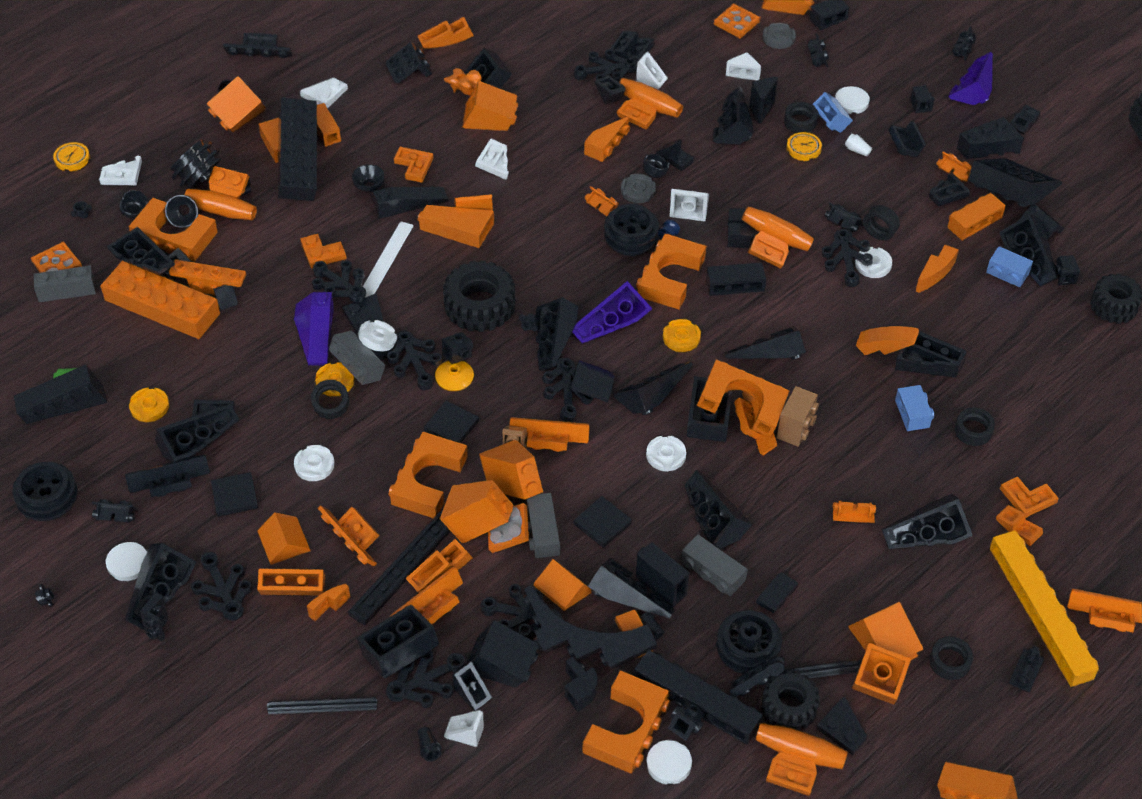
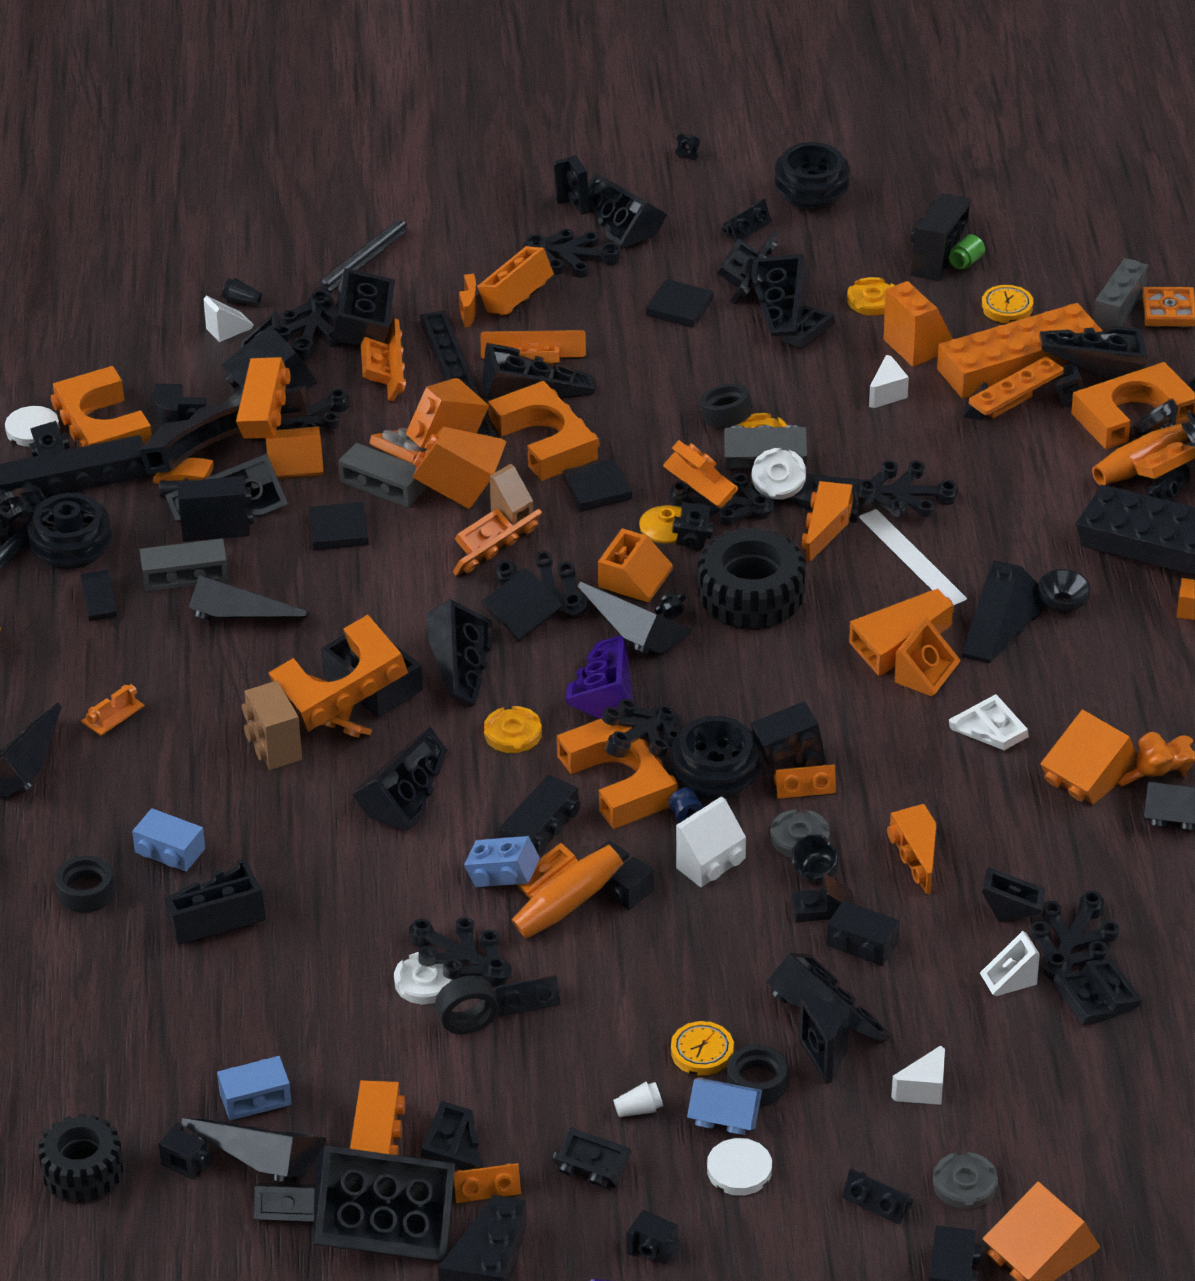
camera: 130 degrees right, 10 degrees down
(107, 337) = (1007, 303): none -> light orange tile
(125, 561) = (679, 207): white tile -> none
(182, 349) = (913, 324): none -> orange slope
(241, 342) = (888, 384): none -> white slope
(282, 538) = (582, 310): orange slope -> none
(314, 326) = (854, 450): dark purple wedge -> none
(314, 463) = (659, 370): white tile -> none
(317, 252) = (980, 503): orange plate -> none
(384, 512) = (508, 371): none -> black wedge
(396, 295) = (829, 517): none -> orange slope
(410, 369) = (699, 473): none -> orange bracket
(416, 160) = (1054, 654): orange plate -> none
(437, 564) = (420, 375): orange slope -> none
(516, 356) = (633, 566): none -> orange slope
(558, 597) = (263, 398): none -> orange brick
(591, 204) = (790, 734): none -> black brick
(619, 276) = (659, 718): none -> black plant
(645, 103) = (951, 924): orange plate -> none
(666, 453) = (359, 608): white tile -> none
(683, 127) = (863, 933): none -> black brick
(737, 21) = (1042, 1143): orange piece -> none
(783, 267) = (502, 861): none -> medium blue brick
(886, 339) = (282, 870): orange slope -> none
(937, 268) = (341, 1022): orange slope -> none

